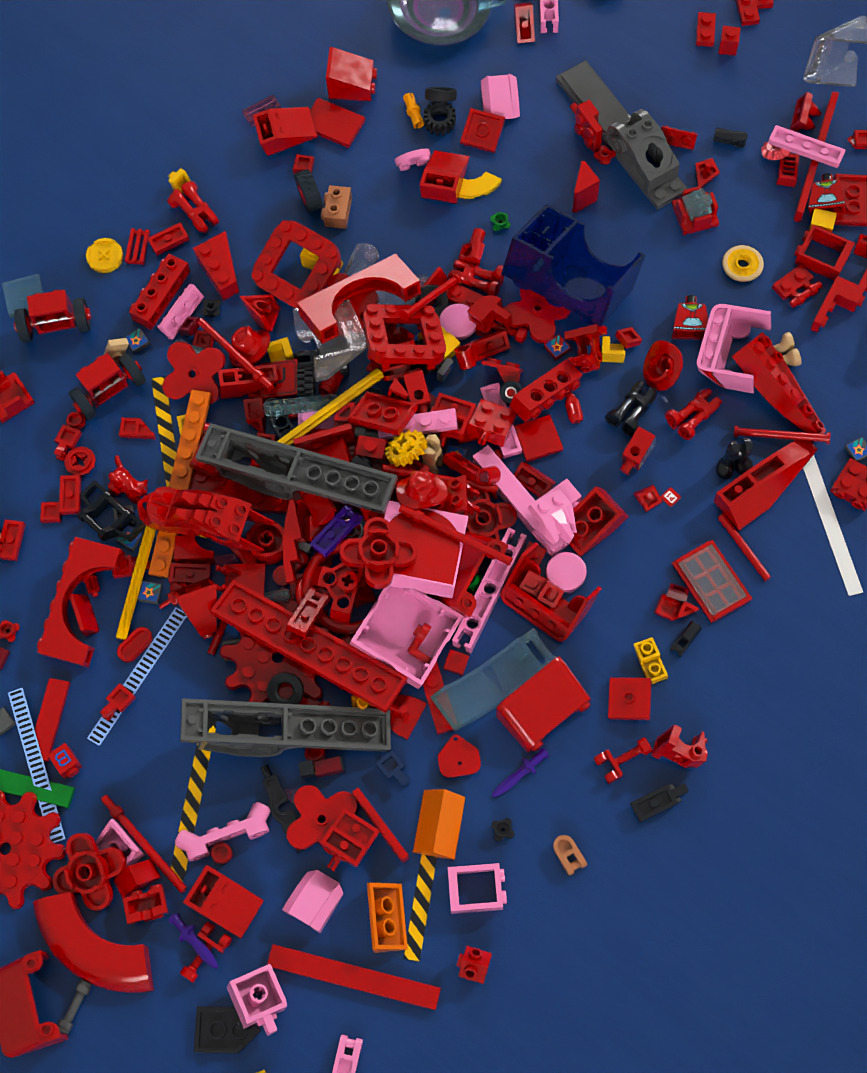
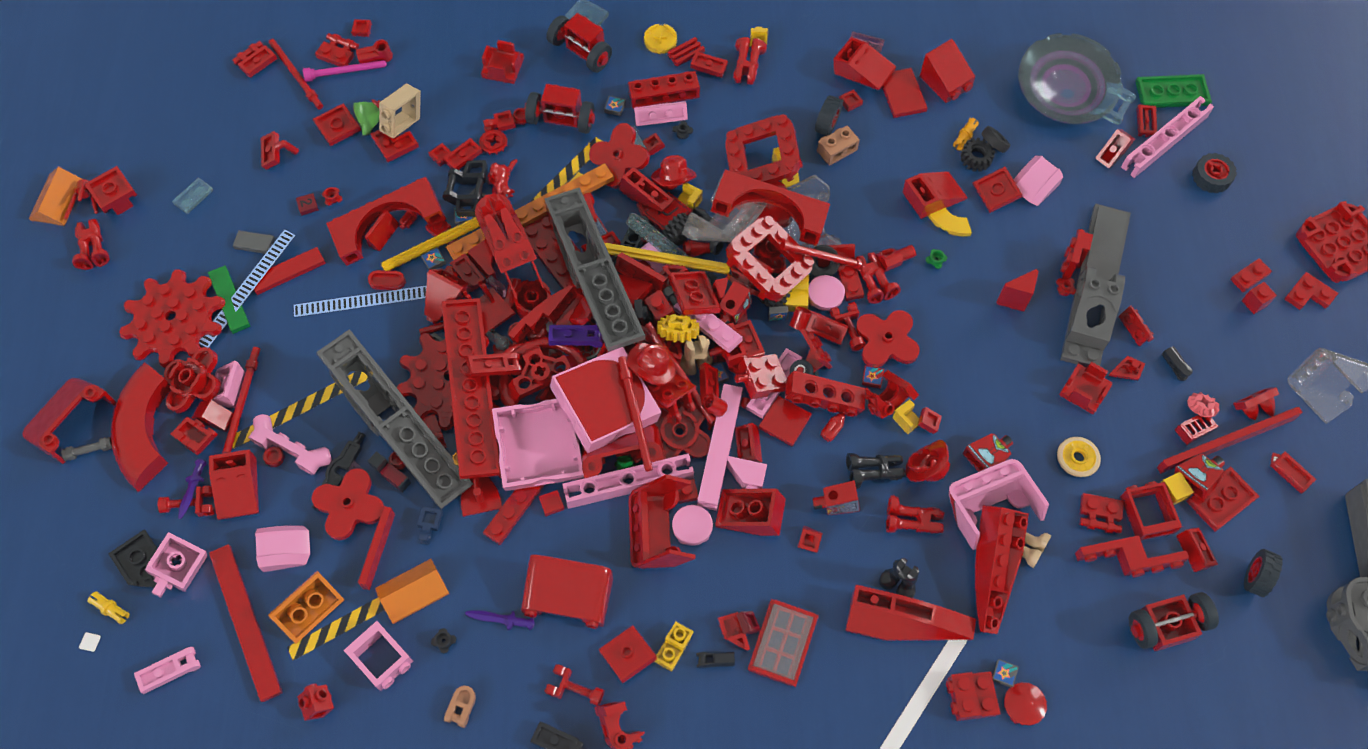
camera: 45 degrees right, 5 degrees down
(65, 761) = (263, 302): red brick -> none
(116, 348) = (590, 94): tan plate -> none
(118, 700) = (334, 301): red plate -> none
(135, 429) = (547, 155): red tile -> none
(189, 326) = (655, 127): dark red tile -> none
(218, 265) = (718, 108): red wedge -> none
(255, 413) = (622, 227): red slope -> none
(257, 375) = (651, 194): red bar -> none
(262, 309) = (710, 160): red slope -> none
(293, 680) = (433, 407): black tyre -> none
(348, 839) = (343, 531): red plate -> none
(378, 552) = (568, 368): red plant -> none
(417, 157) = (922, 159): bright pink tile -> none
(420, 633) = (545, 456): red plate -> none
(457, 752) = (478, 558): red piece -> none
(487, 309) = (850, 301): red brick -> none
(491, 682) = (545, 536): clear light blue windscreen -> none
(541, 588) = (662, 515): red slope -> none
(555, 517) = (725, 478): bright pink plate -> none
(557, 263) = (934, 327): clear blue piece -> none
(670, 497) = (827, 556): red sticker -> none
(697, 203) = (1090, 380): clear light blue brick -> none
(744, 547) = (835, 646): red bar -> none
(782, 434) = (986, 636): red bar -> none
(806, 146) = (1226, 423): bright pink plate -> none

